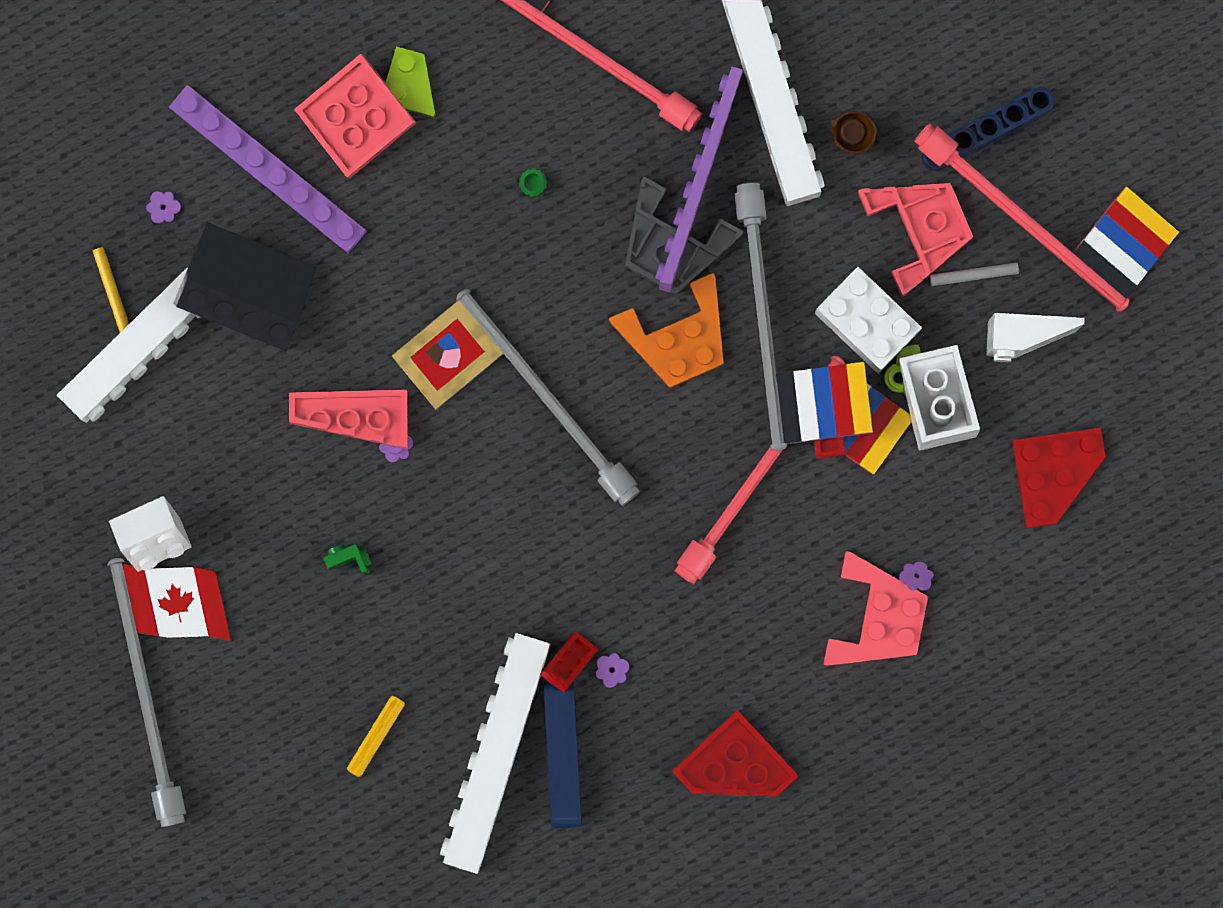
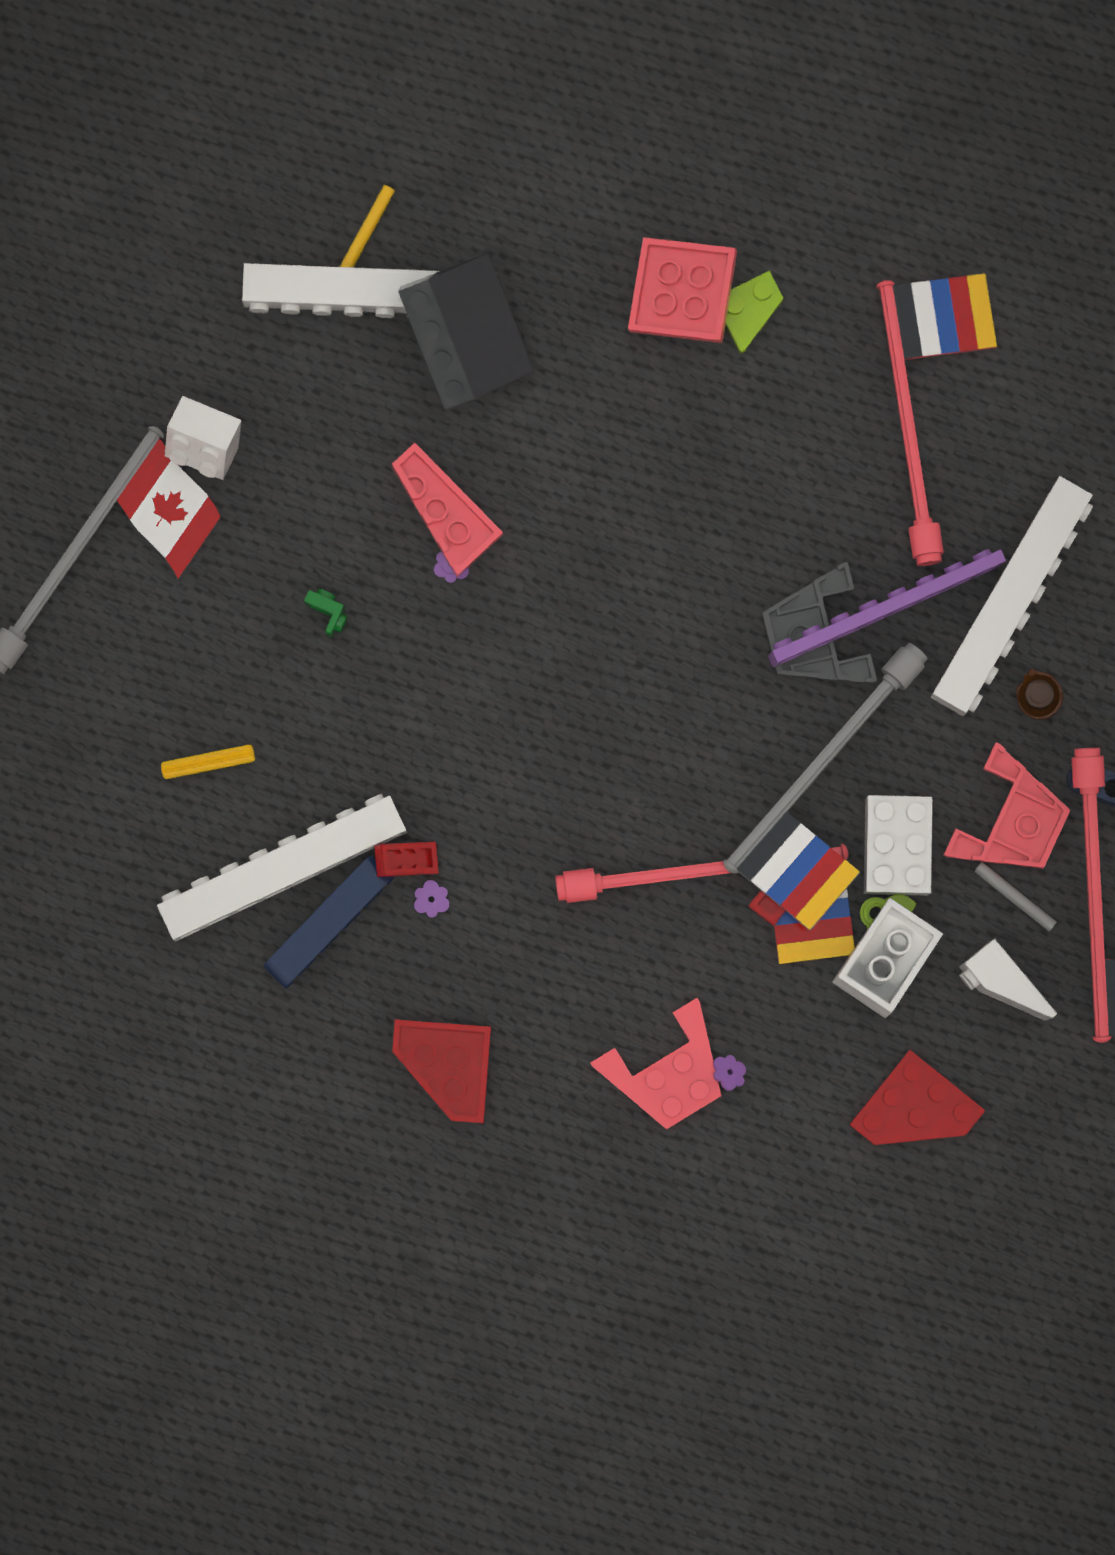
camera: 40 degrees right, 0 degrees up
(158, 200) = (473, 199): medium lavender plant -> none
(267, 169) = (576, 261): medium lavender plate -> none
(463, 346) = (579, 545): flag -> none
(533, 182) = (761, 479): green piece -> none
(683, 347) = (739, 719): orange wing -> none

